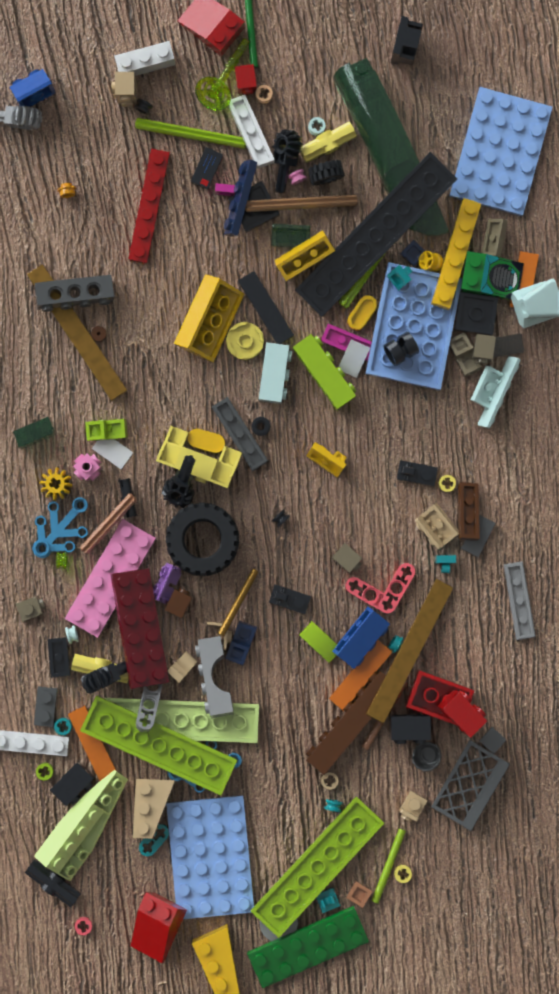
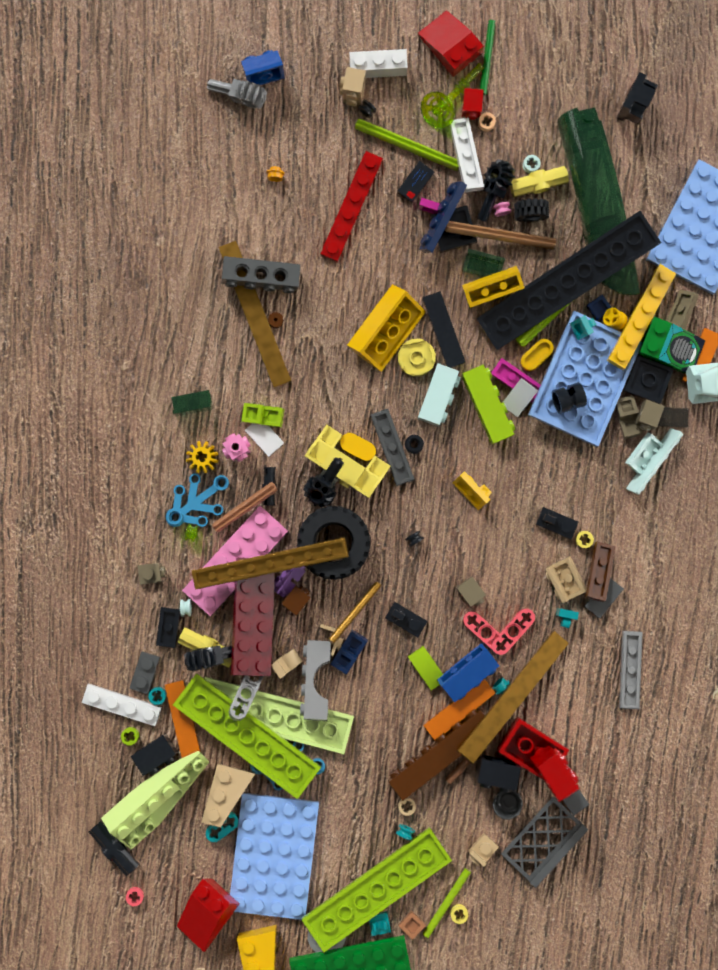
camera: 15 degrees right, 0 degrees up
(144, 572) = (270, 563): none -> pearl gold tile

